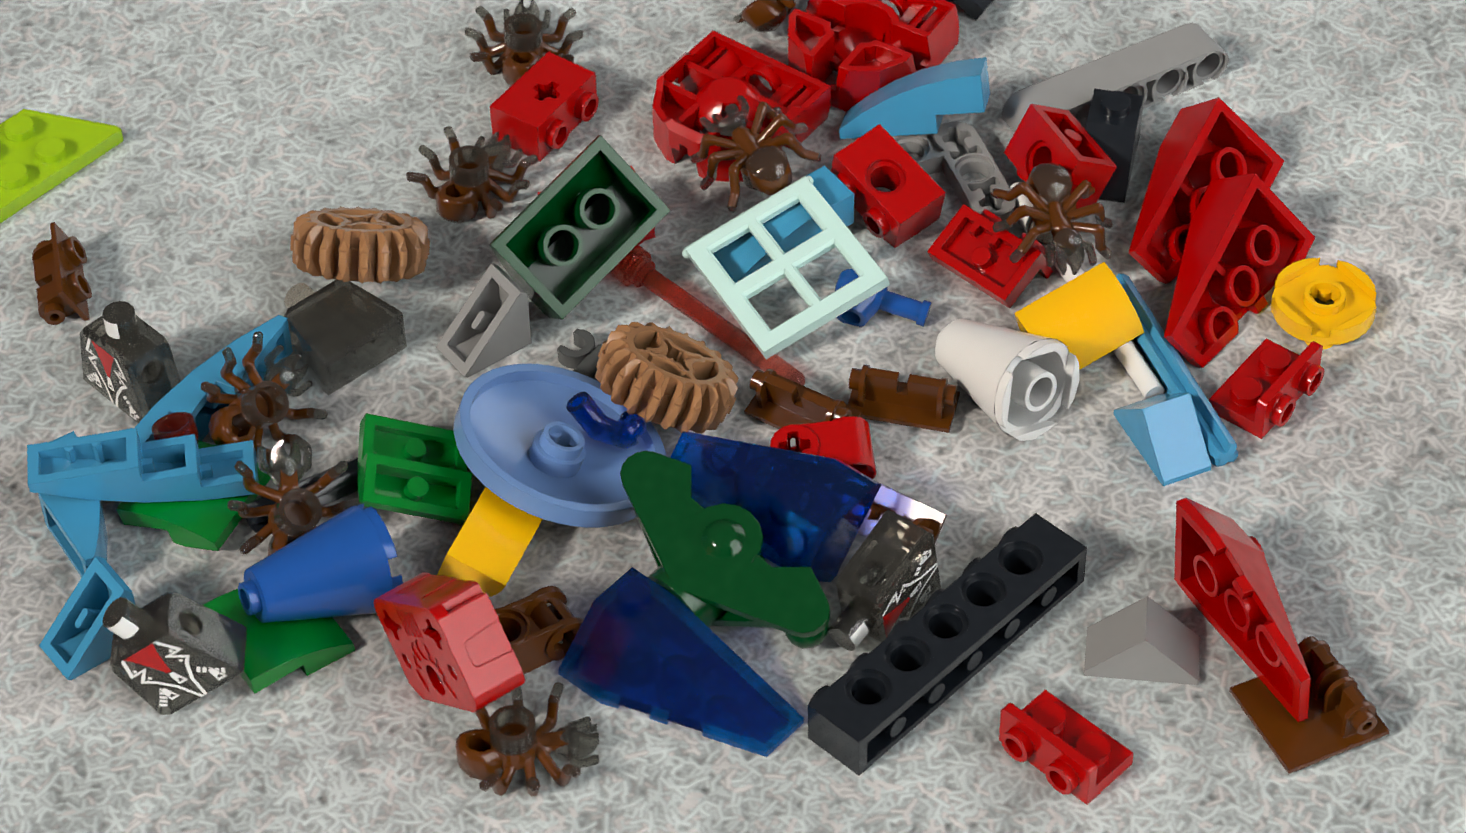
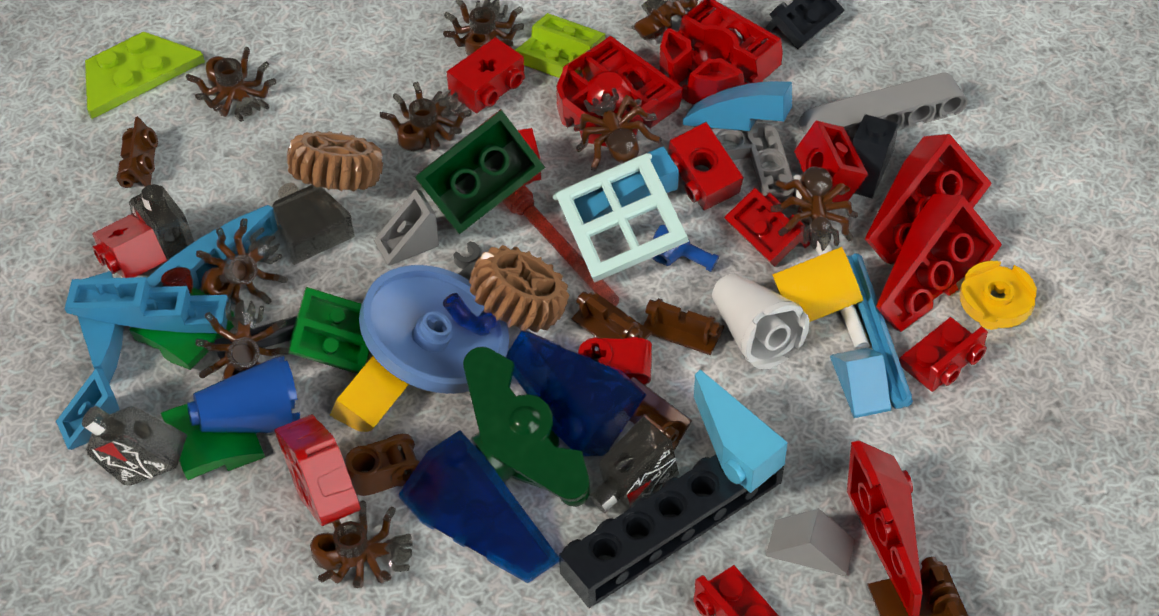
camera: 10 degrees right, 5 degrees up
(90, 396) = (128, 247): none -> red brick
(168, 156) = (227, 78): none -> animal
(634, 53) = (556, 43): none -> lime slope
(1021, 522) = (742, 442): none -> medium azure slope

